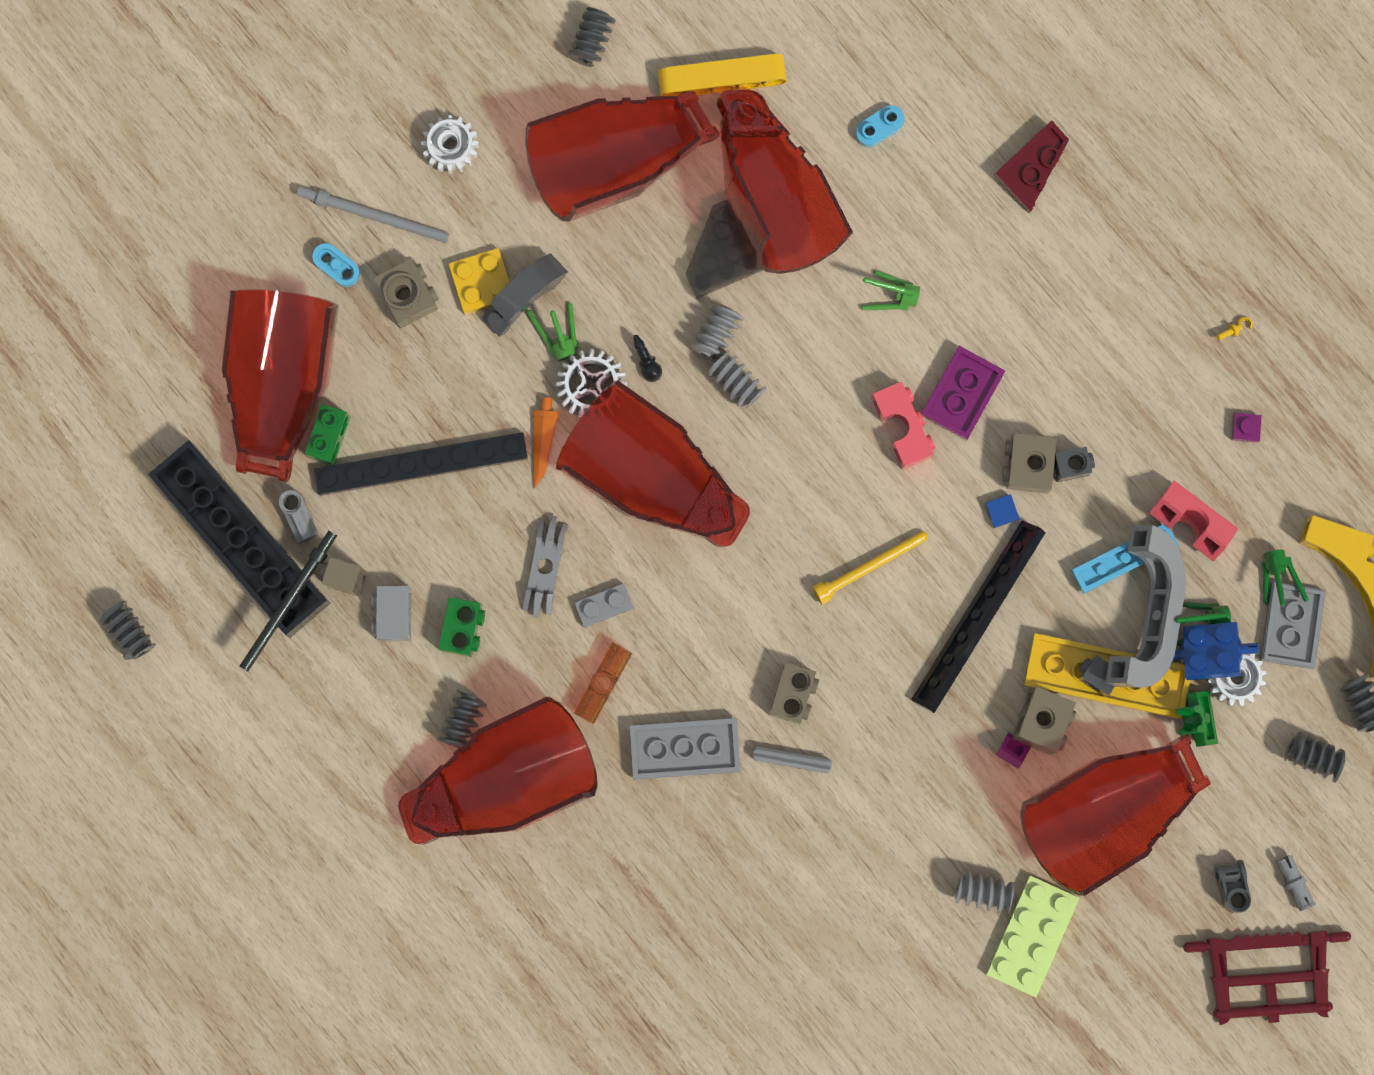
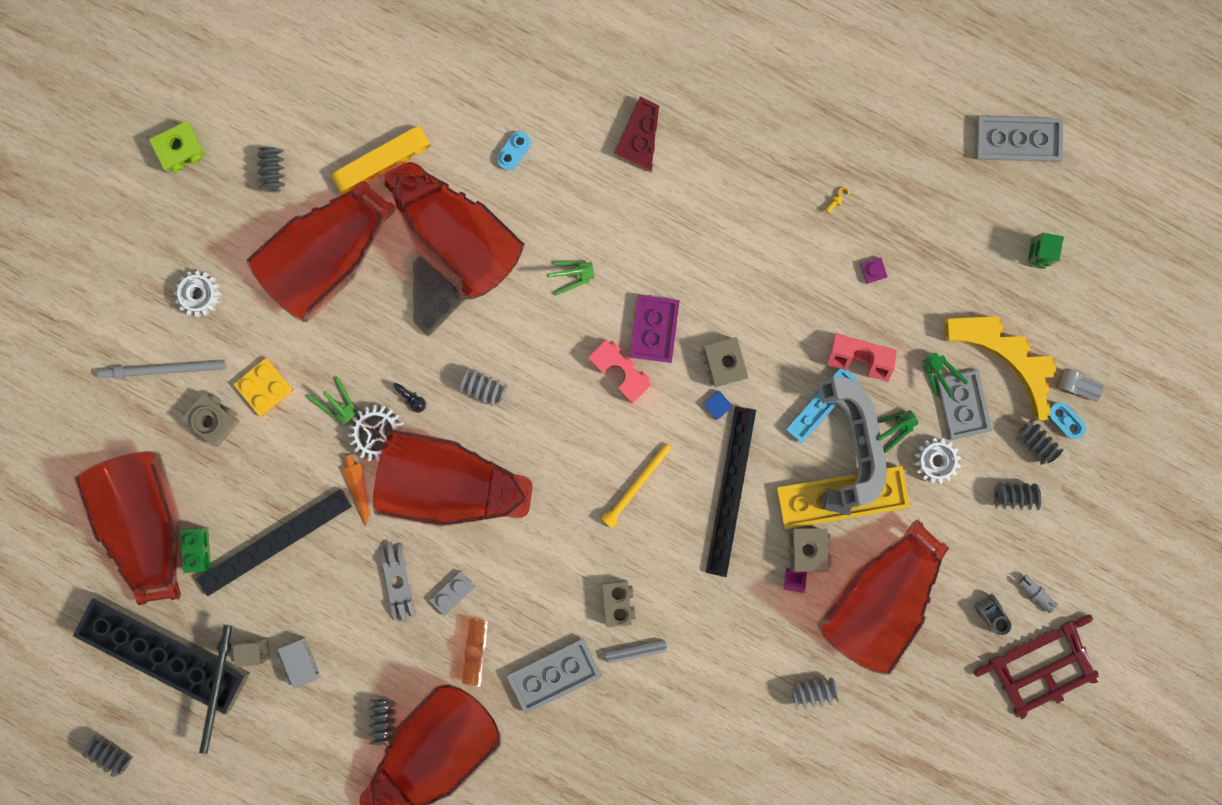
camera: 20 degrees left, 5 degrees up
(299, 518) = (200, 621): light grey piece -> none
(337, 265) = (150, 420): medium azure plate -> none
(453, 626) = (347, 653): green brick -> none
(522, 292) = (297, 384): dark grey arch -> none
(716, 332) = (454, 357): light grey piece -> none
(1032, 936) = (861, 710): yellowish green plate -> none
(1064, 472) = (748, 354): dark grey brick -> none
(1199, 719) = (922, 503): green plate -> none
(1213, 651) = (913, 449): blue plate -> none

